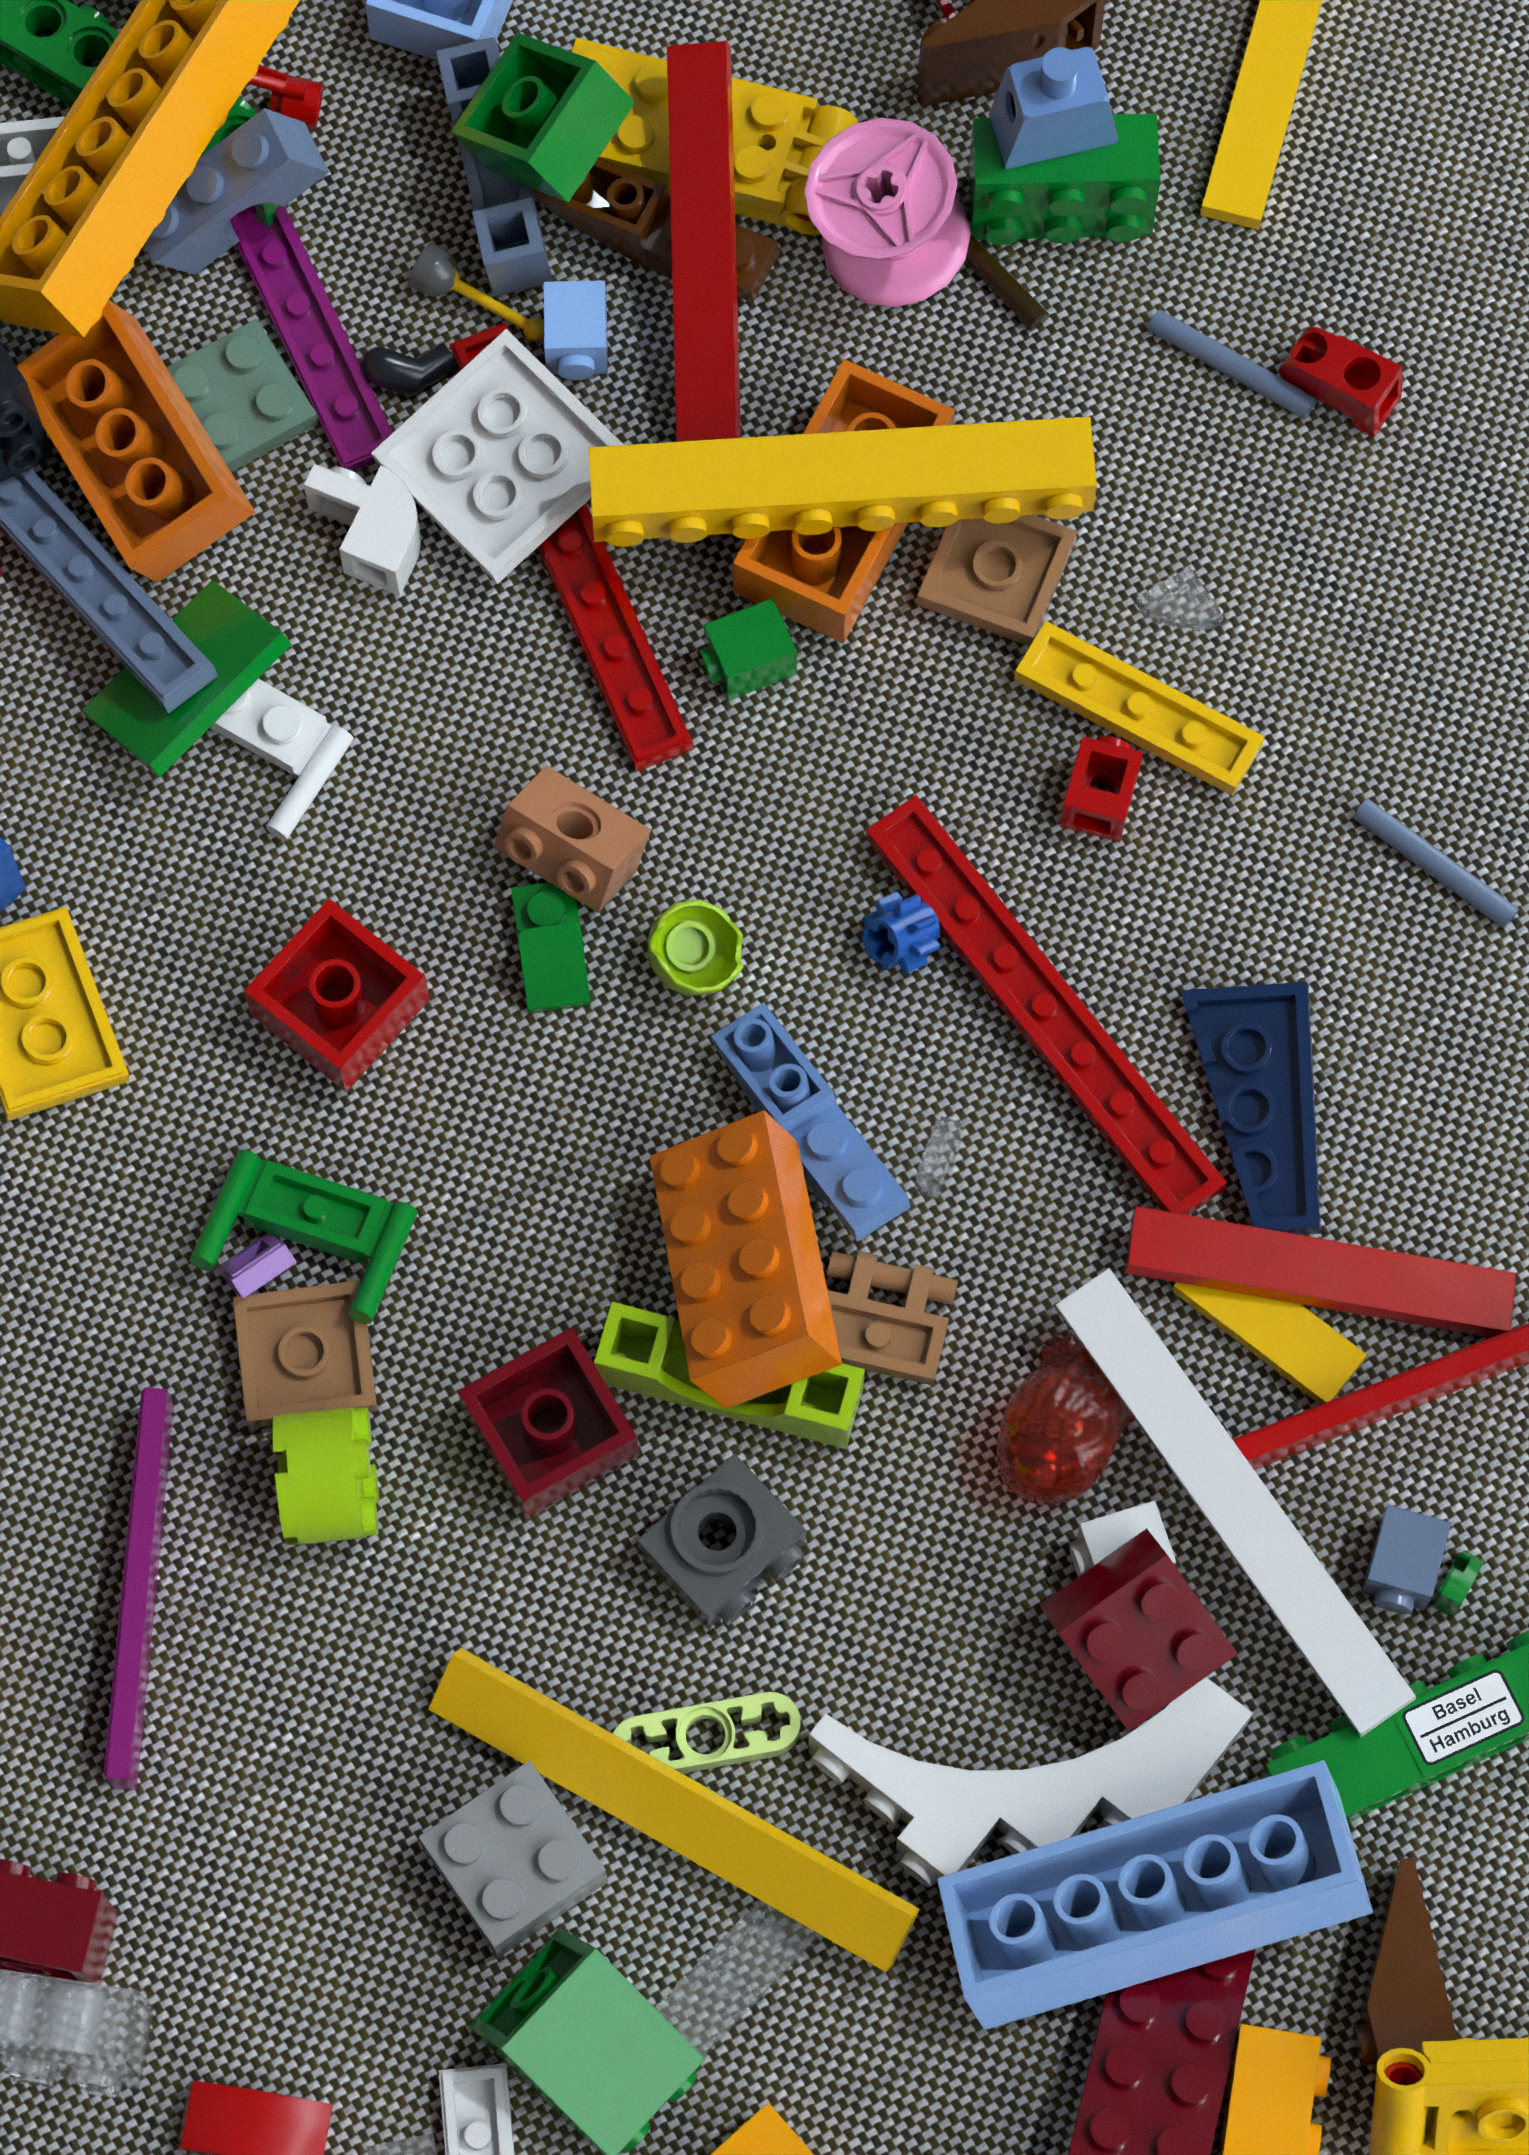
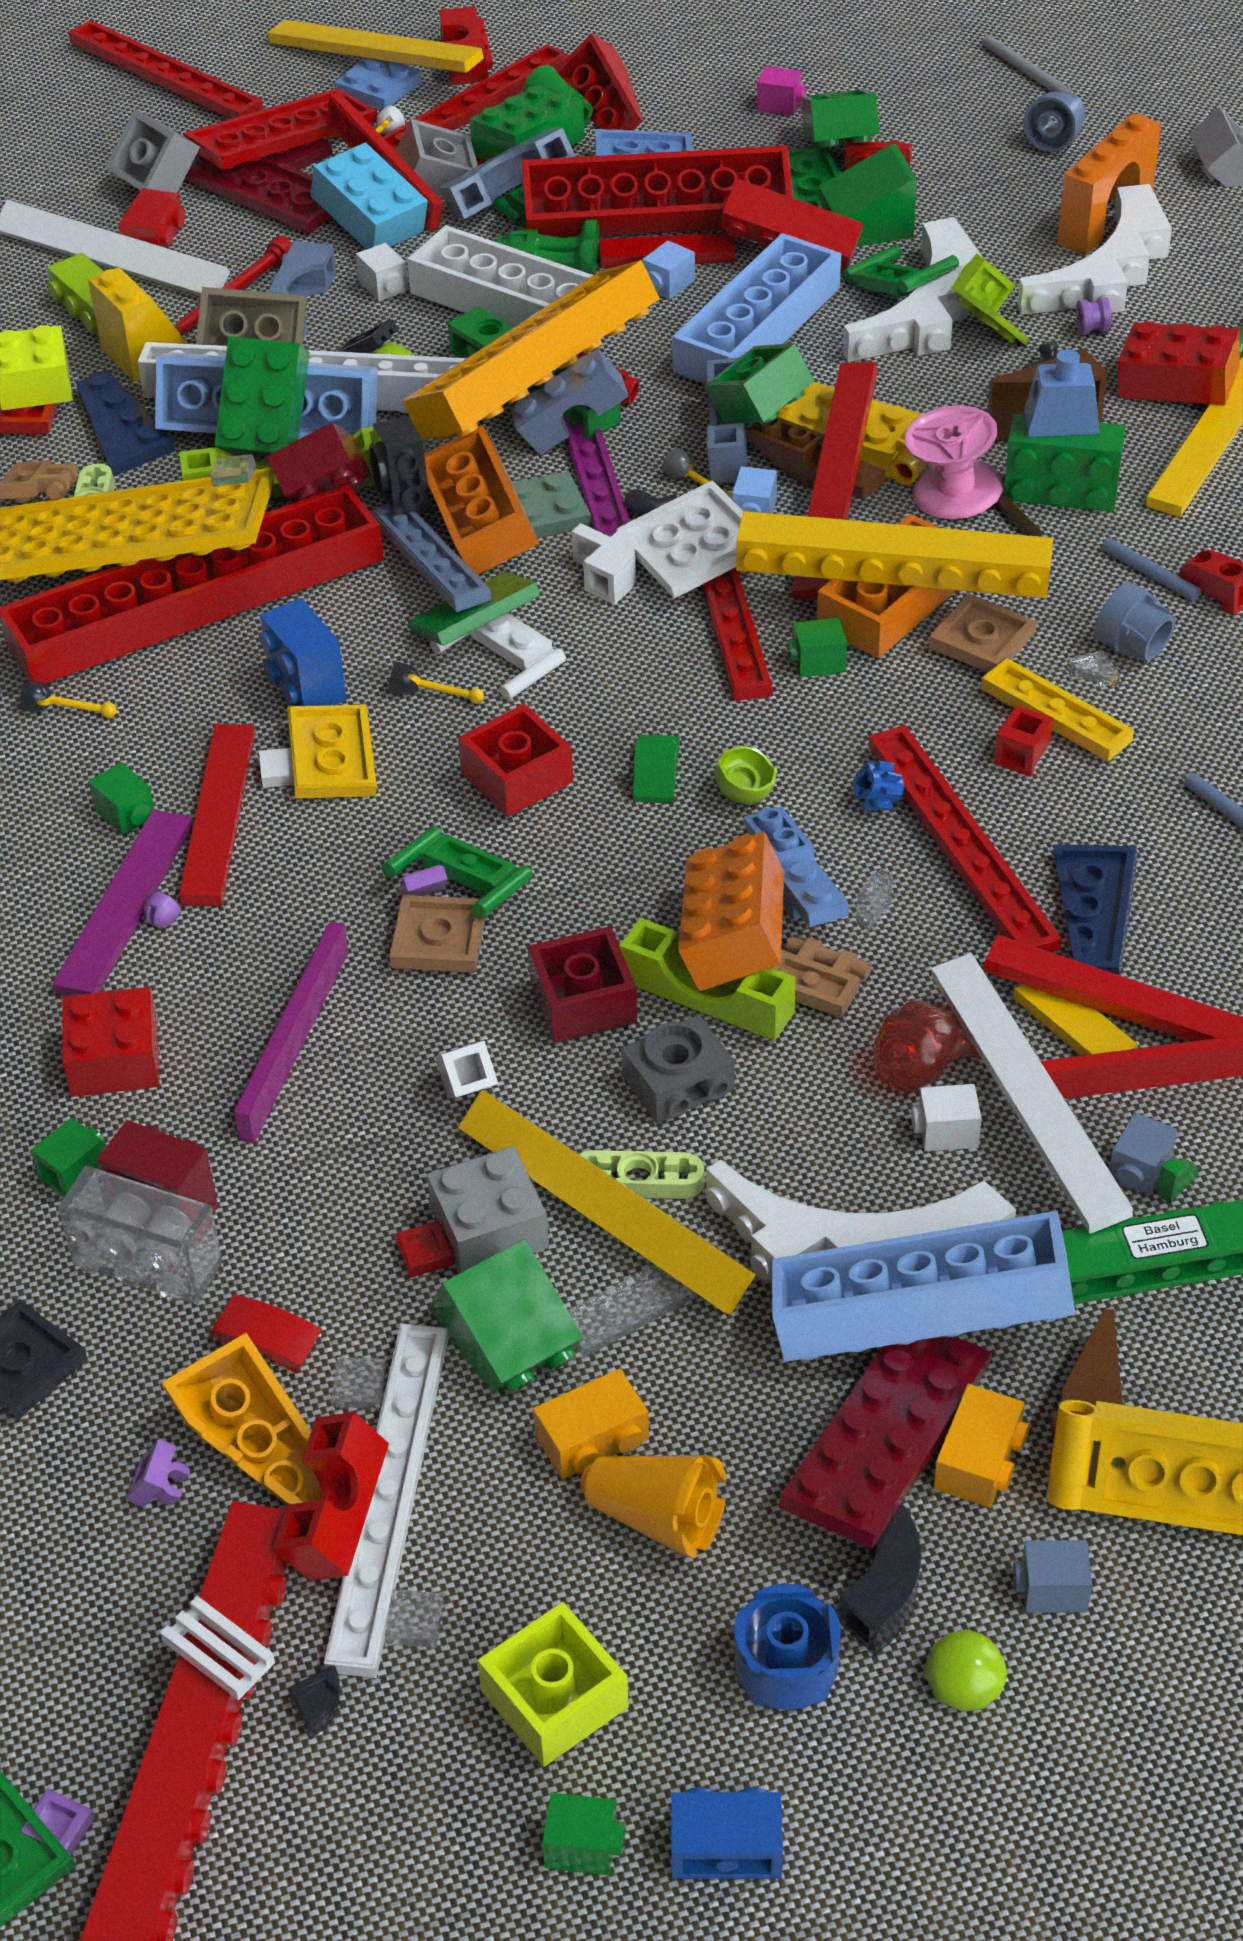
camera: 15 degrees right, 25 degrees down
(116, 841) = (406, 680): none -> hinge
(325, 1475) = (429, 982): lime brick -> none
(420, 1620) = (466, 1069): none -> white brick
(435, 1929) = (424, 1249): none -> red tile
(572, 838) = (683, 711): nougat brick -> none
(1138, 1629) = (946, 1145): dark red brick -> none
(1232, 514) = (1134, 623): none -> sand blue piece

